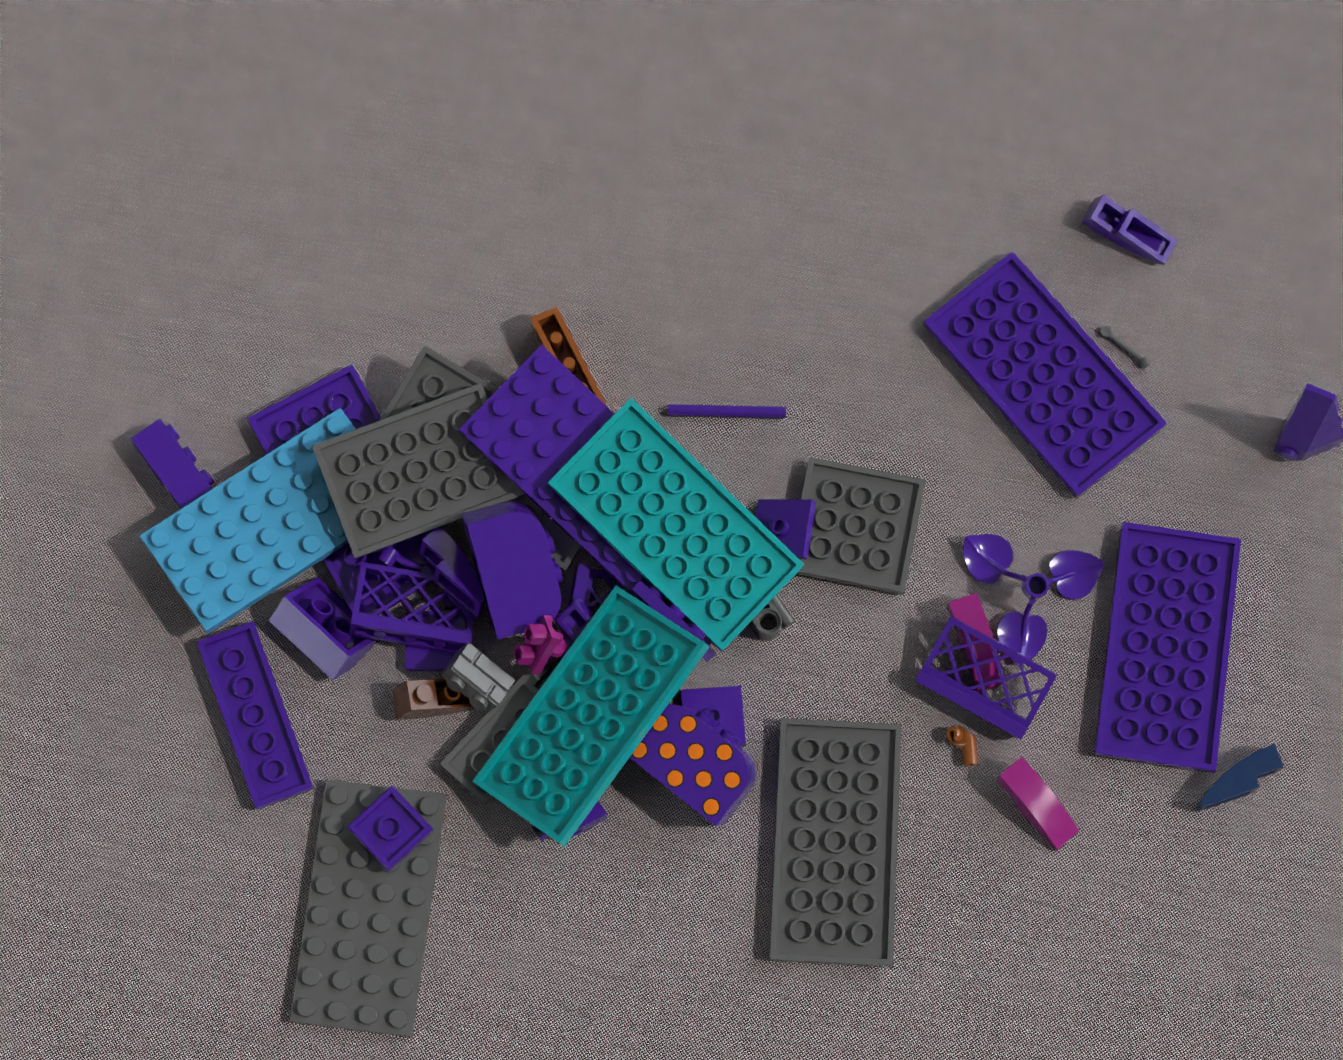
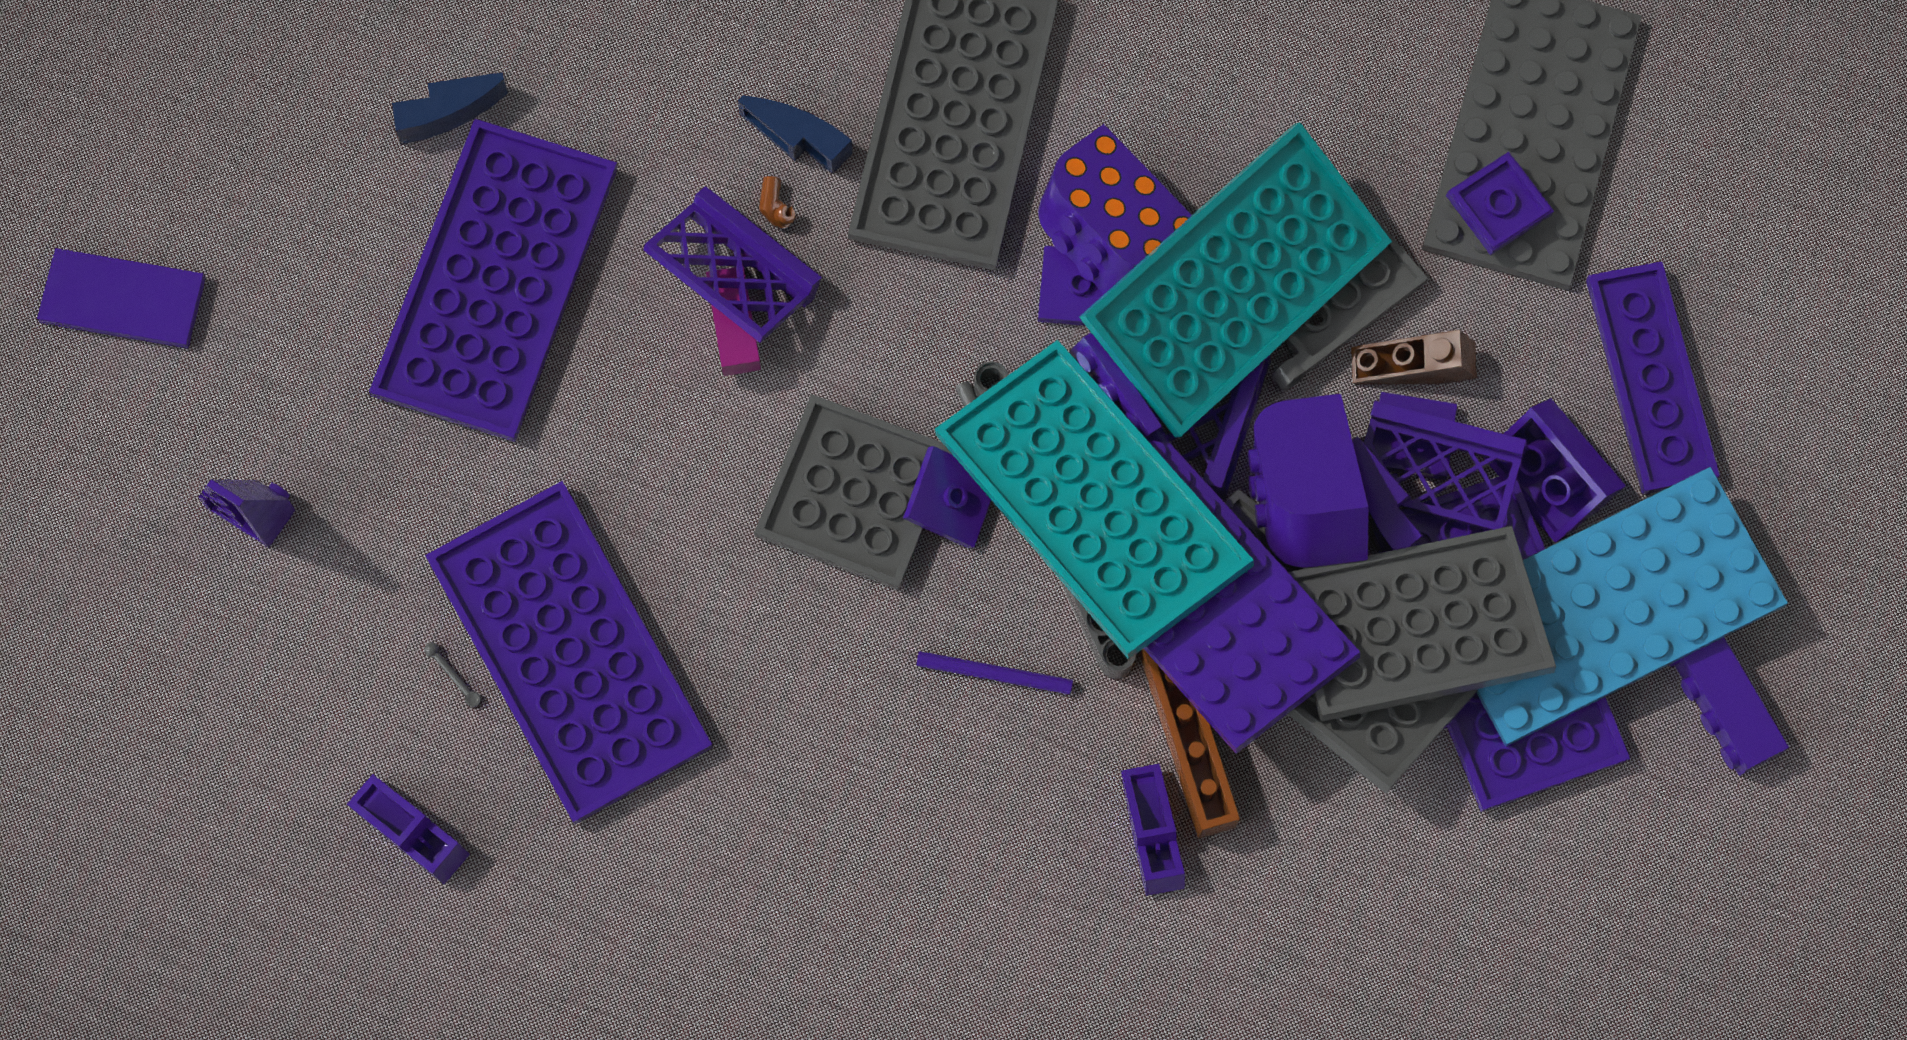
camera: 170 degrees left, 0 degrees up
(390, 556) = (1448, 532): dark purple hand -> none
(477, 678) = (1369, 363): dark grey brick -> none
(540, 645) = (1286, 381): magenta hips -> none
(575, 618) = (1233, 415): dark purple slope -> none
(592, 315) = (1153, 829): none -> dark purple slope
(960, 805) = (797, 131): none -> dark blue slope
(1038, 803) = (701, 118): magenta slope -> none
(1071, 570) = (673, 324): dark purple plant -> none

